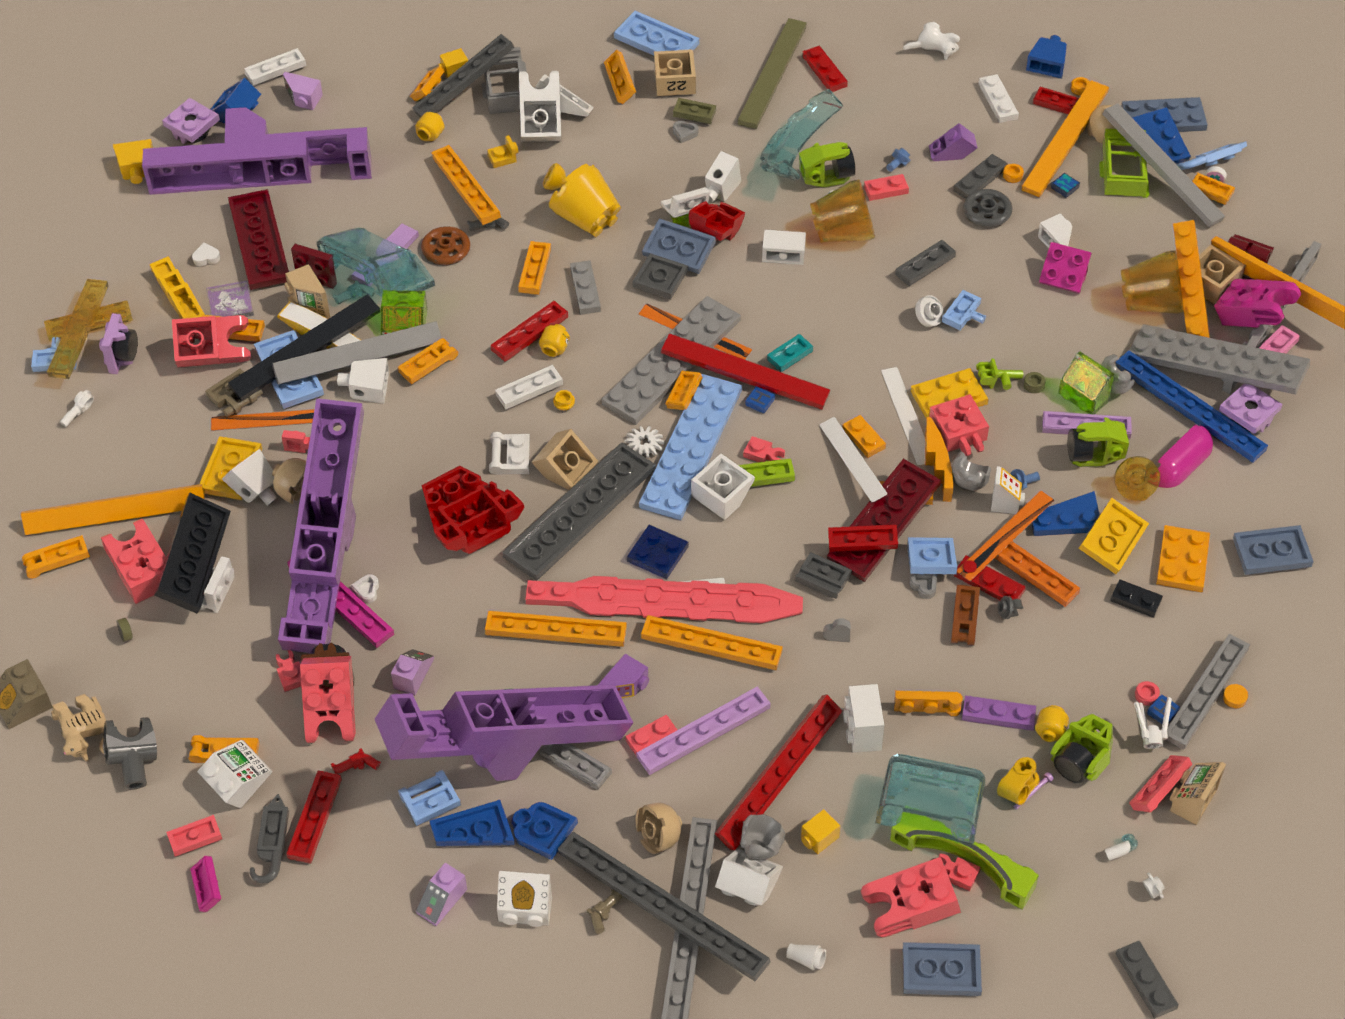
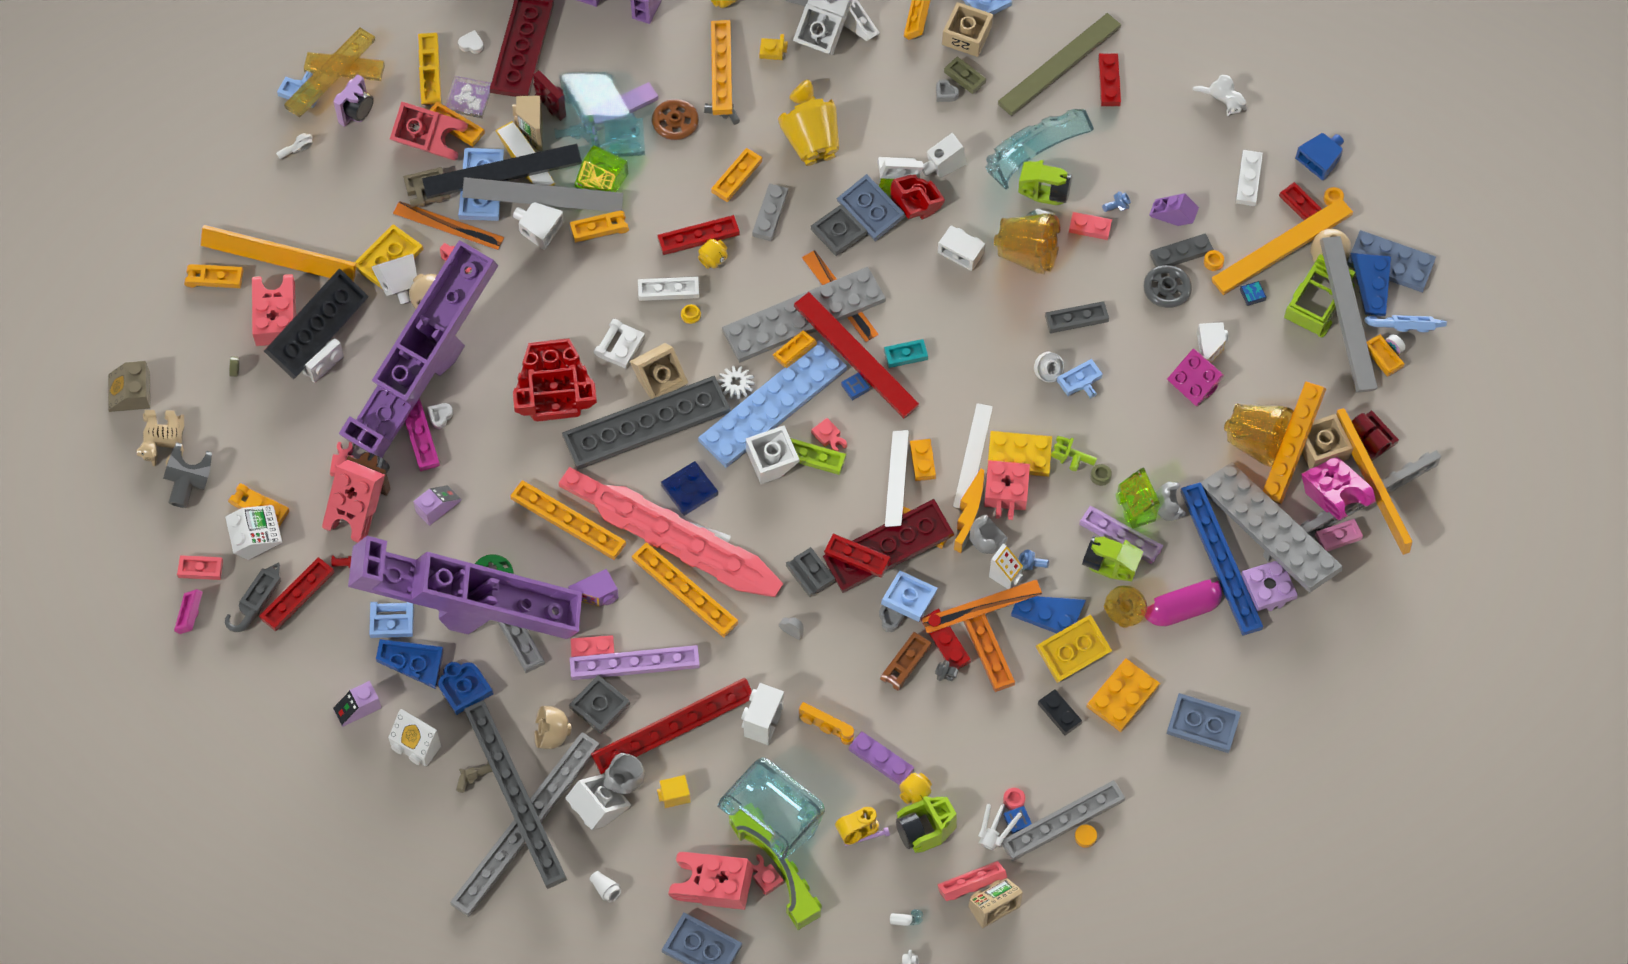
camera: 25 degrees right, 10 degrees up
(692, 784) = (599, 704): none -> dark grey plate

